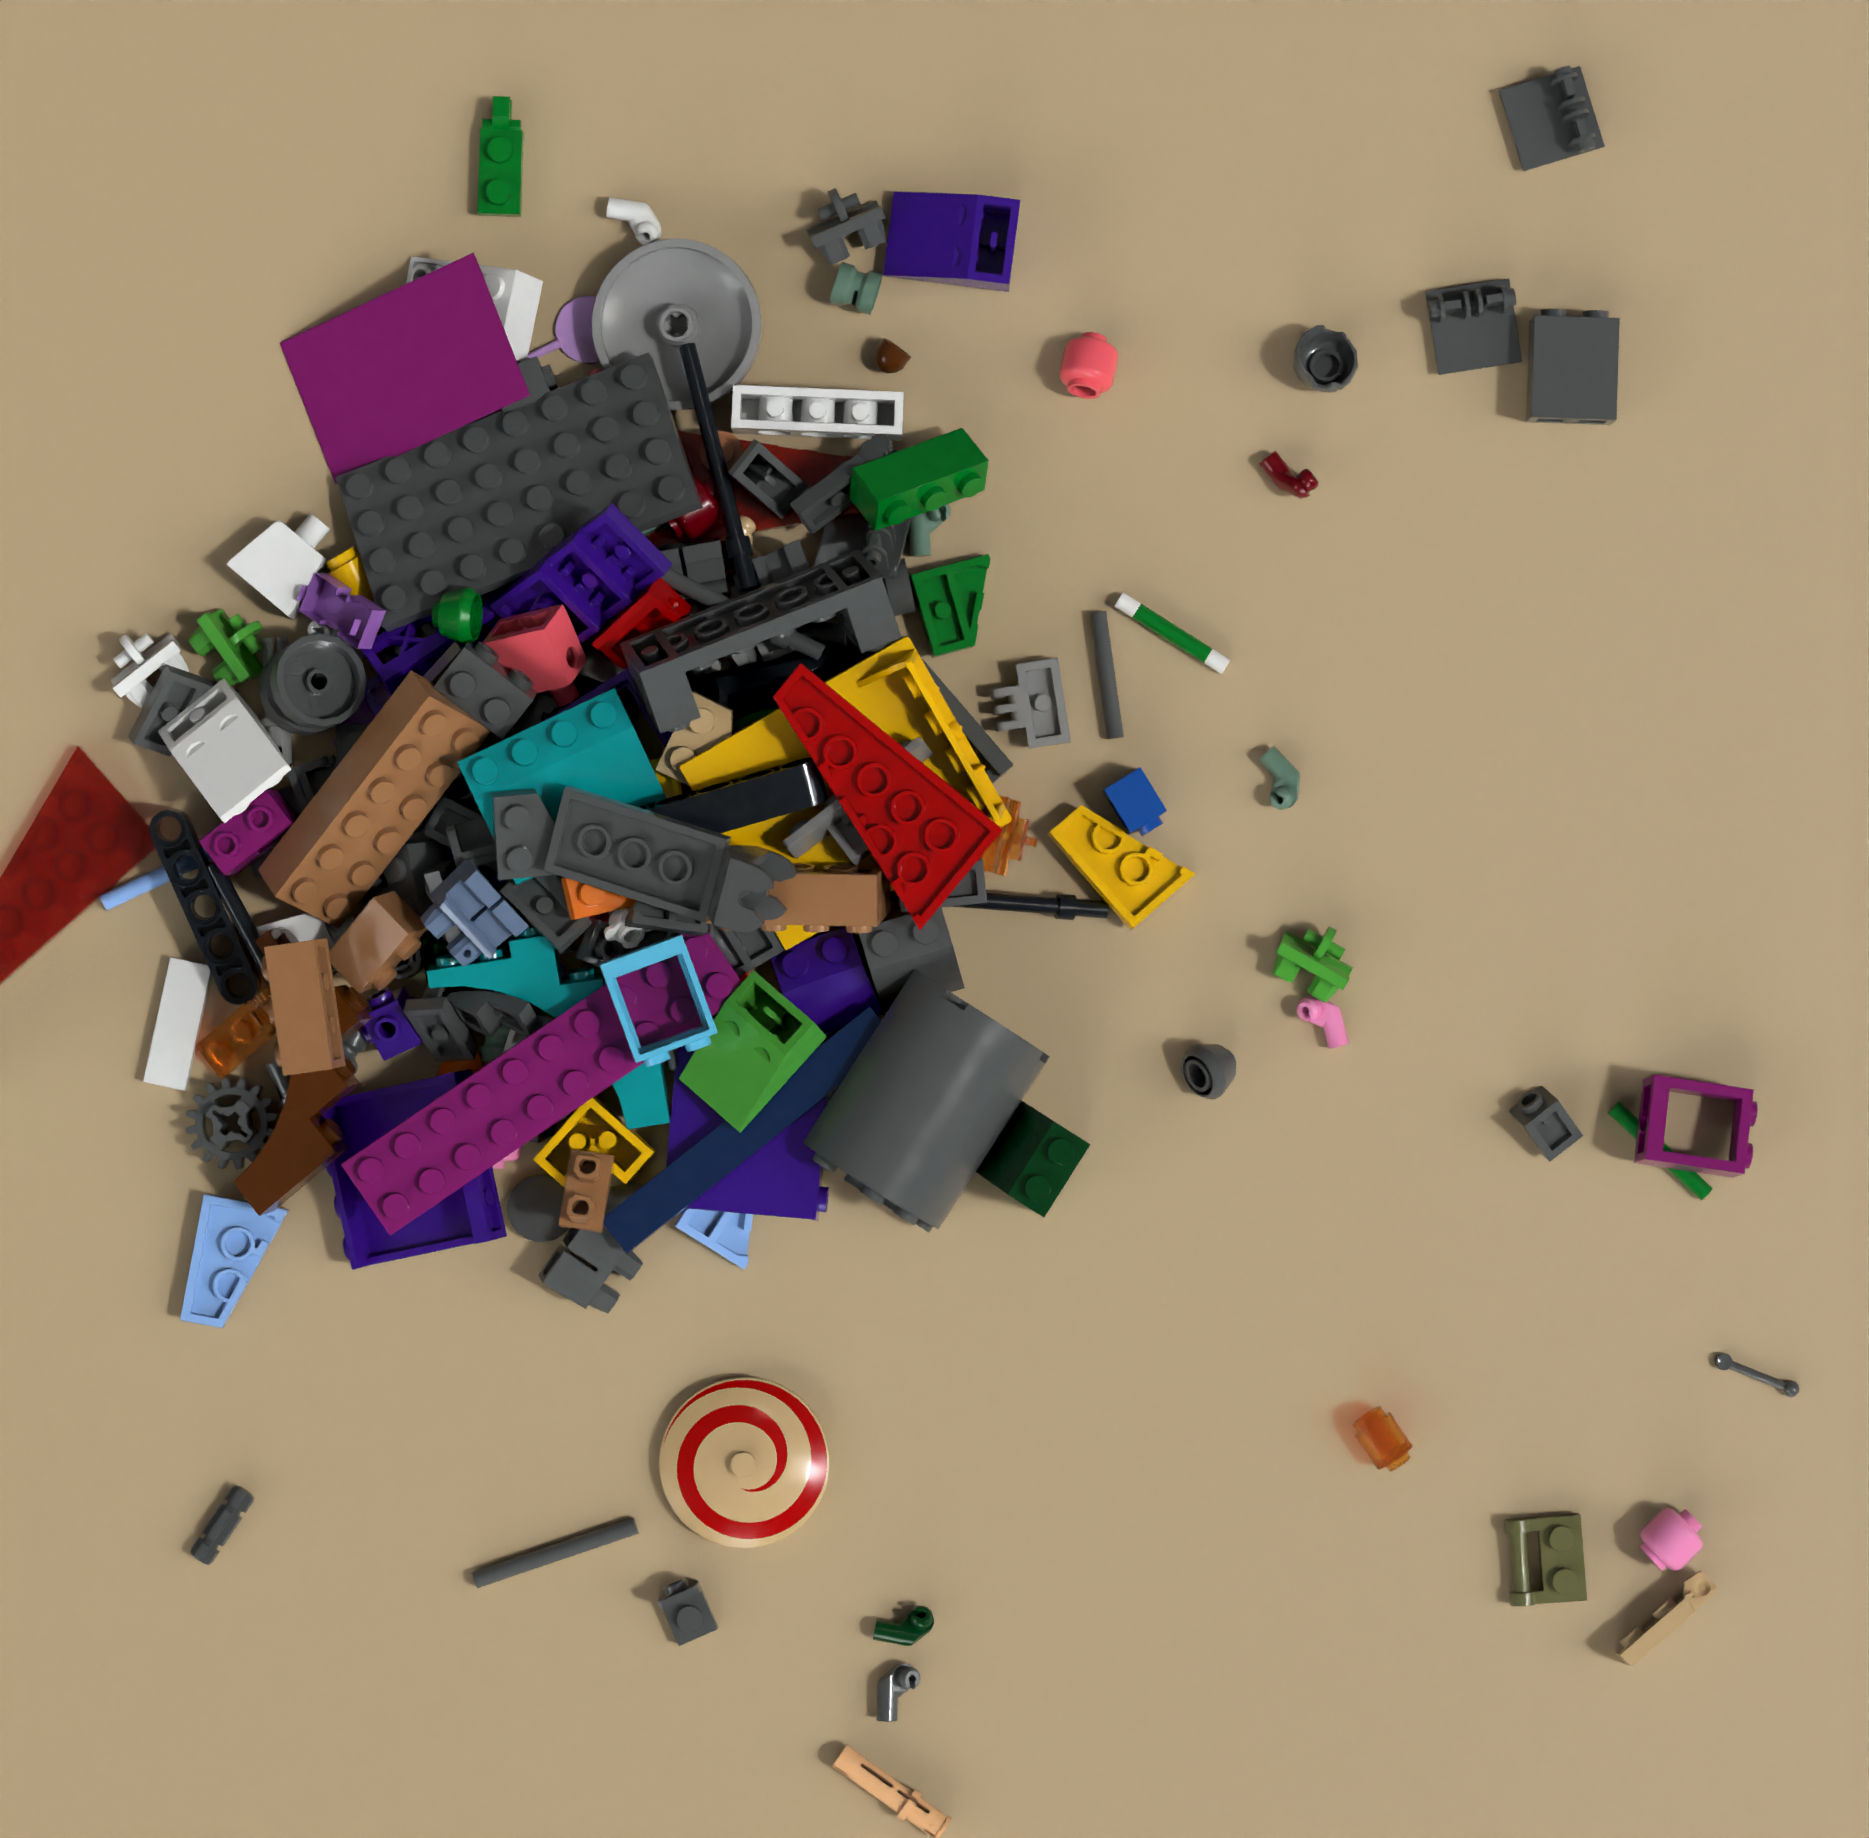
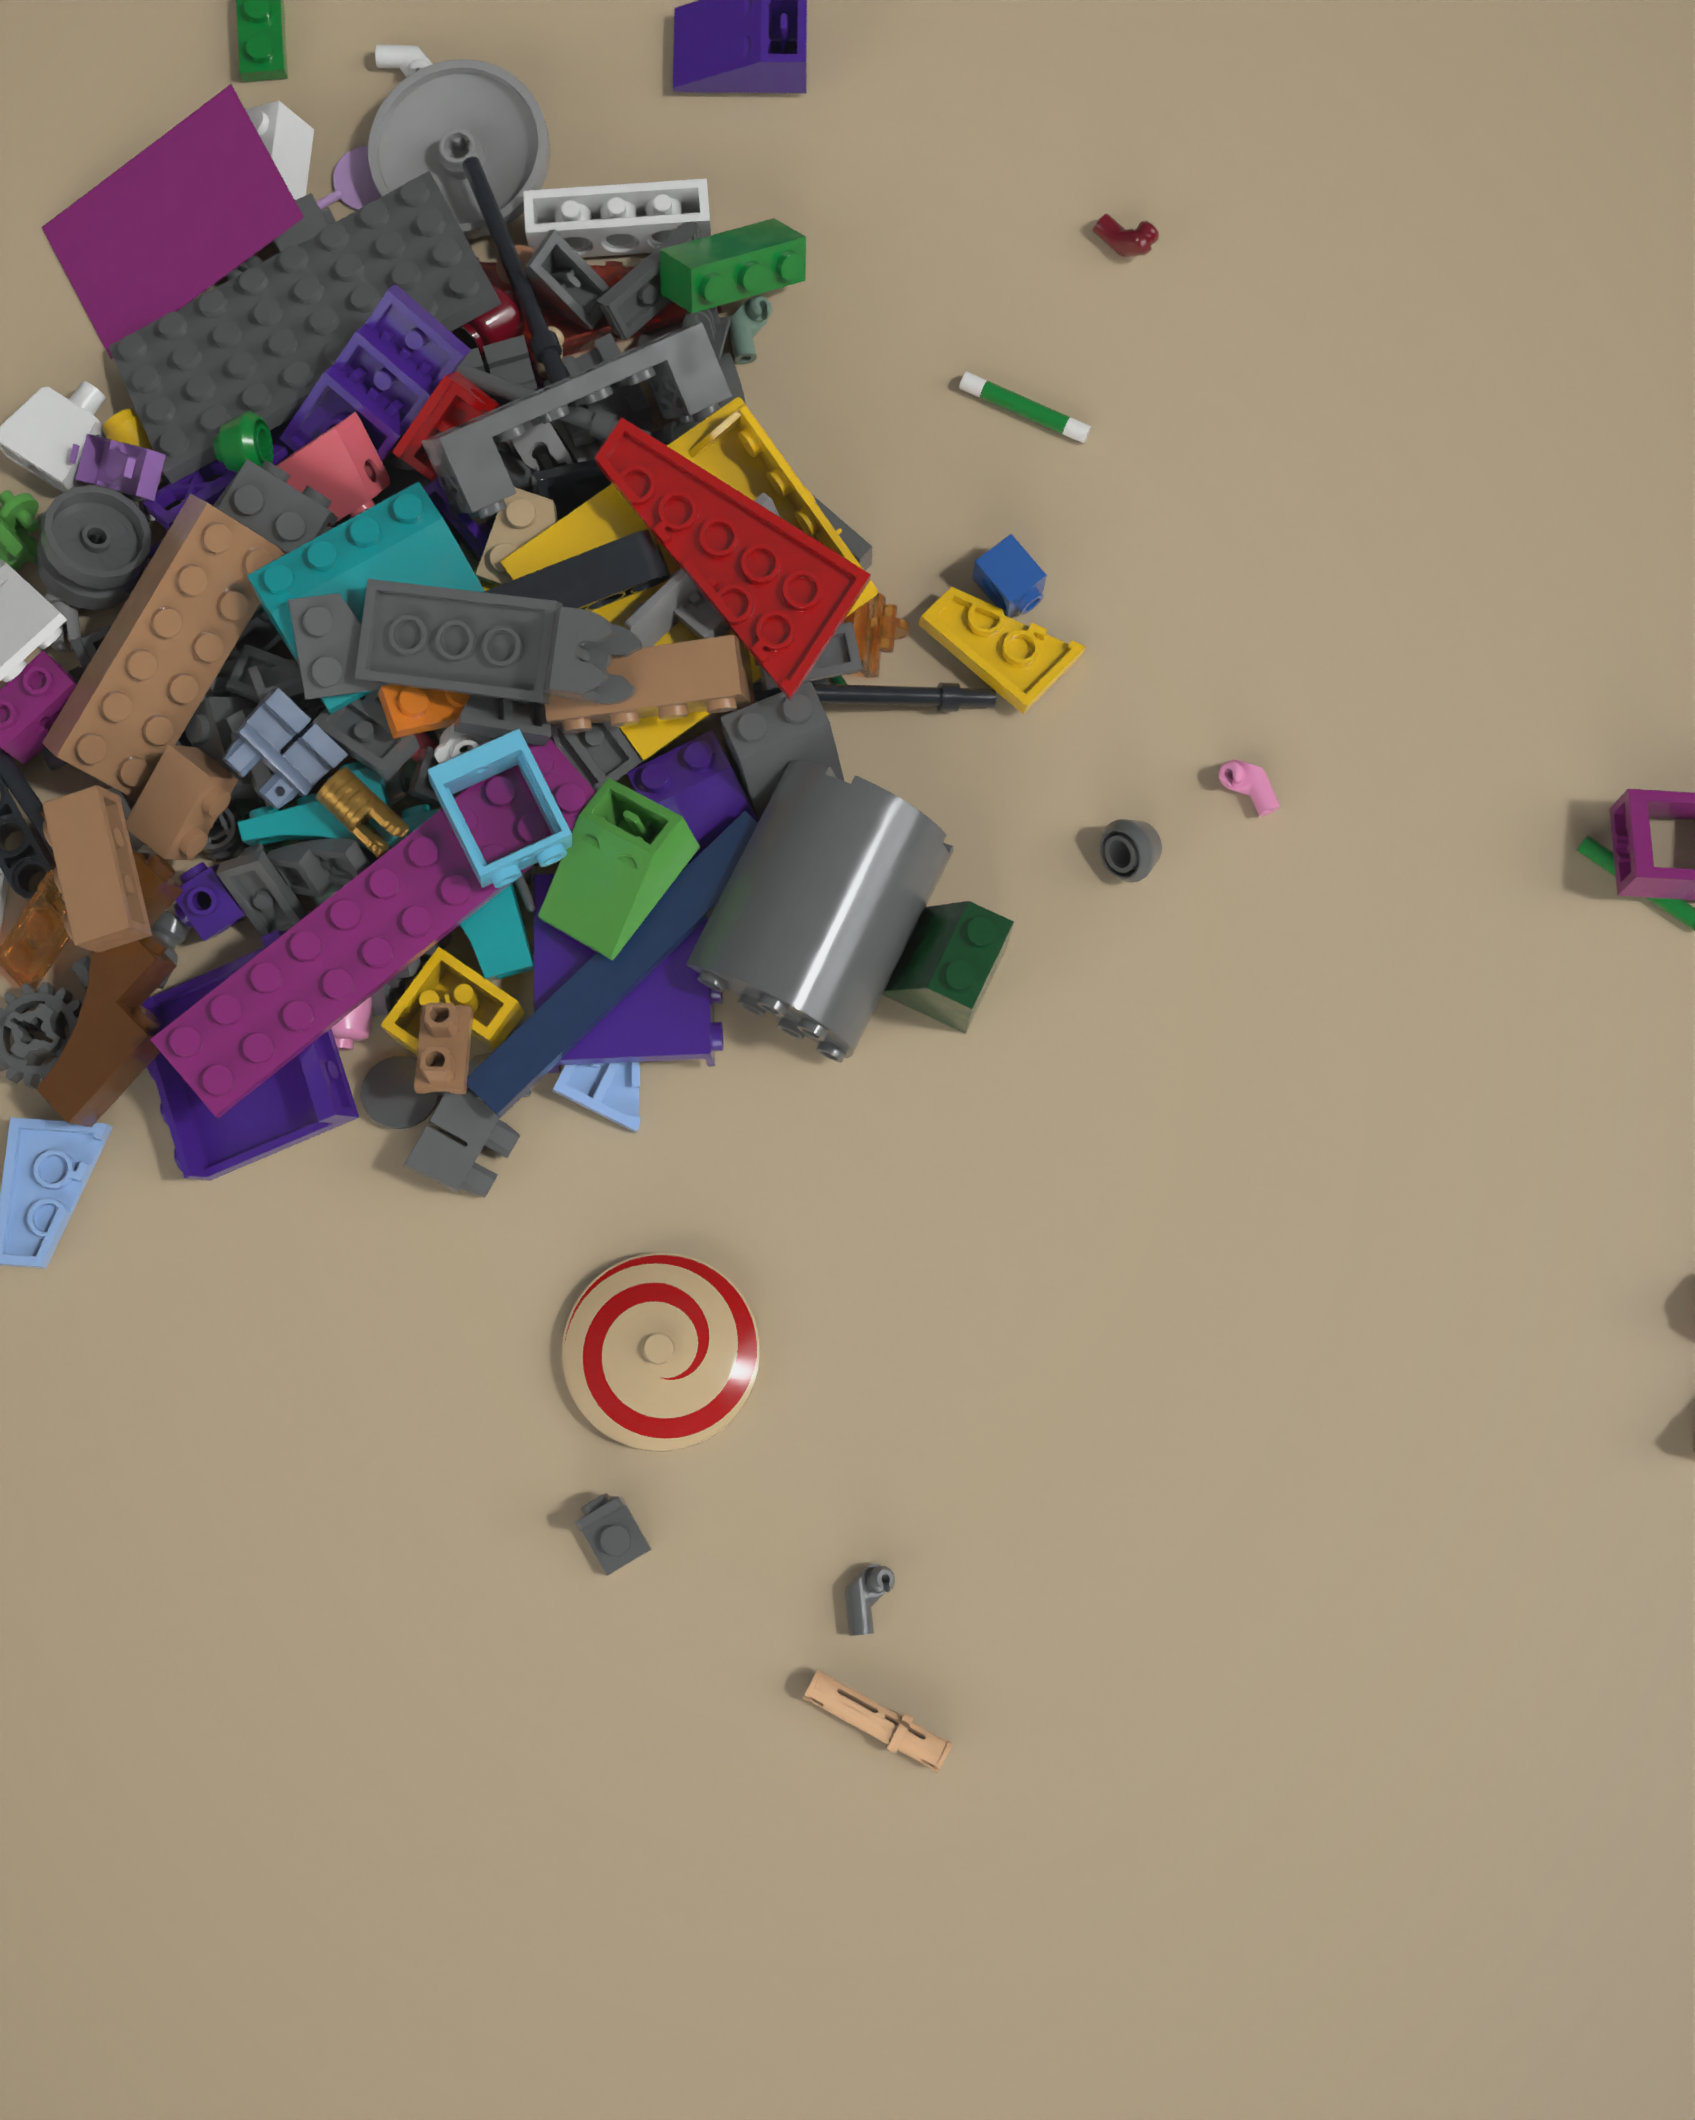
camera: 10 degrees left, 10 degrees down
(222, 1525) = (58, 1498): dark grey axle -> none
(530, 973) = (355, 805): none -> pearl gold hinge
(555, 1552) = (451, 1484): dark grey bar -> none
(830, 234) = (612, 52): dark grey hips -> none
(856, 288) = (645, 101): sand green wheel -> none
(890, 357) = (690, 163): reddish brown hinge -> none
(906, 1631) = (873, 1524): dark green arm -> none
(950, 603) = (784, 398): green wing -> none
(1035, 704) = (886, 492): light grey hinge -> none
(1088, 365) = (900, 148): coral head -> none
(1106, 675) = (960, 457): dark grey bar -> none
(1285, 779) = (1167, 537): sand green arm -> none
(1317, 956) = (1248, 733): bright green hips -> none
(1325, 359) = (1146, 116): dark grey hair -> none
(1382, 1439) = (1389, 1234): clear orange brick -> none
(1474, 326) = (1296, 72): dark grey hinge -> none
(1546, 1122) = (1513, 864): dark grey bracket -> none
(1559, 1557) = (1610, 1348): olive plate -> none
(1573, 368) = (1407, 99): dark grey brick -> none

